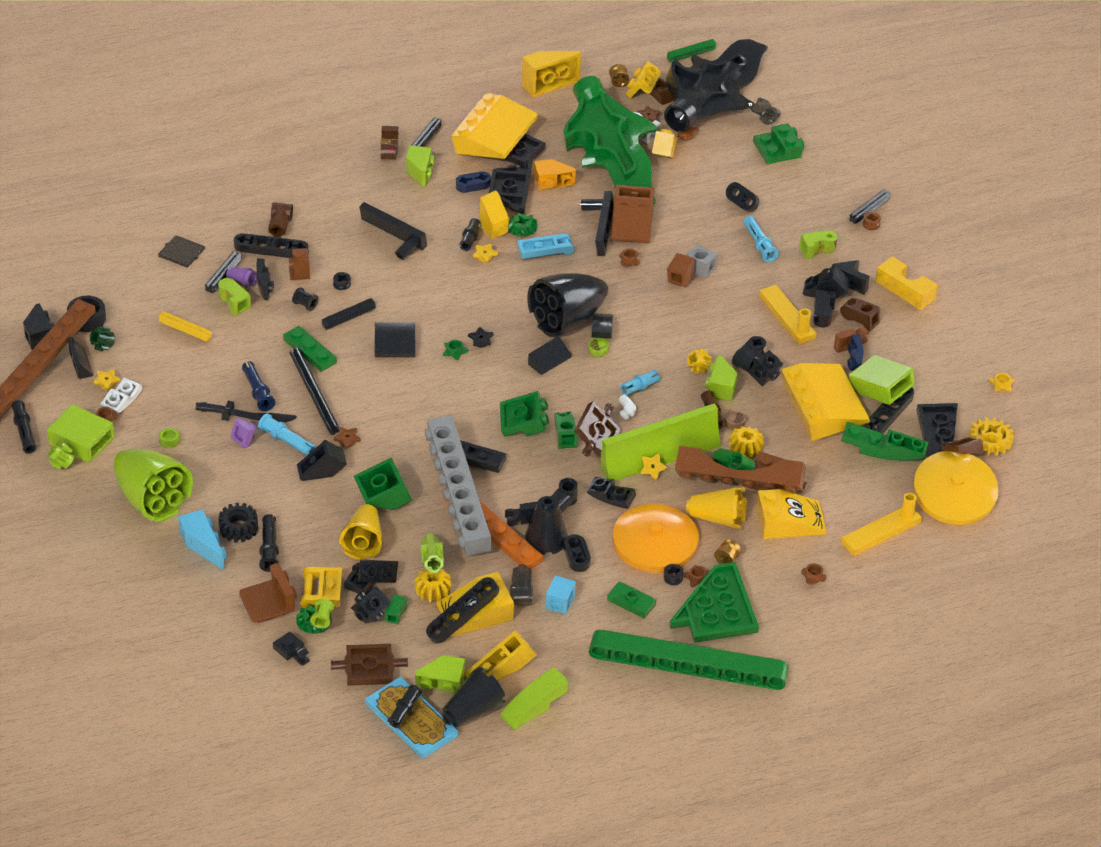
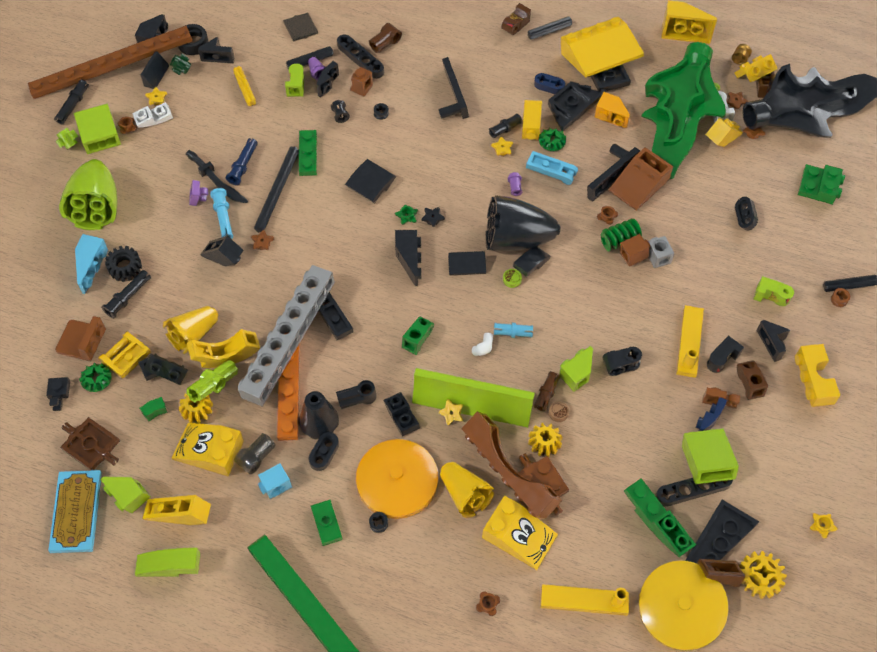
camera: 40 degrees right, 15 degrees up
(125, 313) = (214, 52): none -> black slope
(169, 438) = (150, 166): lime tile -> none
(321, 617) = (92, 379): lime bush -> none
(348, 313) = (360, 140): black axle -> none
(370, 605) = (140, 393): black brick -> none
(383, 486) = (239, 299): green slope -> none
(404, 706) = (70, 501): black pin -> none
(418, 163) = (523, 47): lime slope -> none
(421, 521) = (236, 349): none -> yellow arch
(465, 613) = (186, 446): black beam -> none
(473, 698) = (120, 530): black cone -> none
(492, 375) = (407, 253): none -> black slope
(522, 271) = (515, 184): none -> medium lavender pin
(522, 514) = (316, 386): black plate -> none
(524, 414) = (398, 303): green plate -> none
(594, 426) = (436, 351): reddish brown plate -> none
(656, 265) = (619, 233): none -> green piece
(688, 51) = (822, 63): green axle -> none
(695, 571) = (393, 532): dark orange plate -> none
(699, 361) = (574, 340): yellow gear -> none
(717, 607) = (382, 579): green wing -> none
(727, 552) = (435, 534): pearl gold wheel -> none
(733, 460) = (515, 453): green piece -> none
(763, 108) = (835, 147): clear smoke plate -> none
(763, 243) = (727, 265): medium azure pin -> none
(765, 367) = (616, 386): black brick -> none
(823, 398) = (645, 441): yellow slope -> none
(829, 280) = (747, 334): black slope -> none

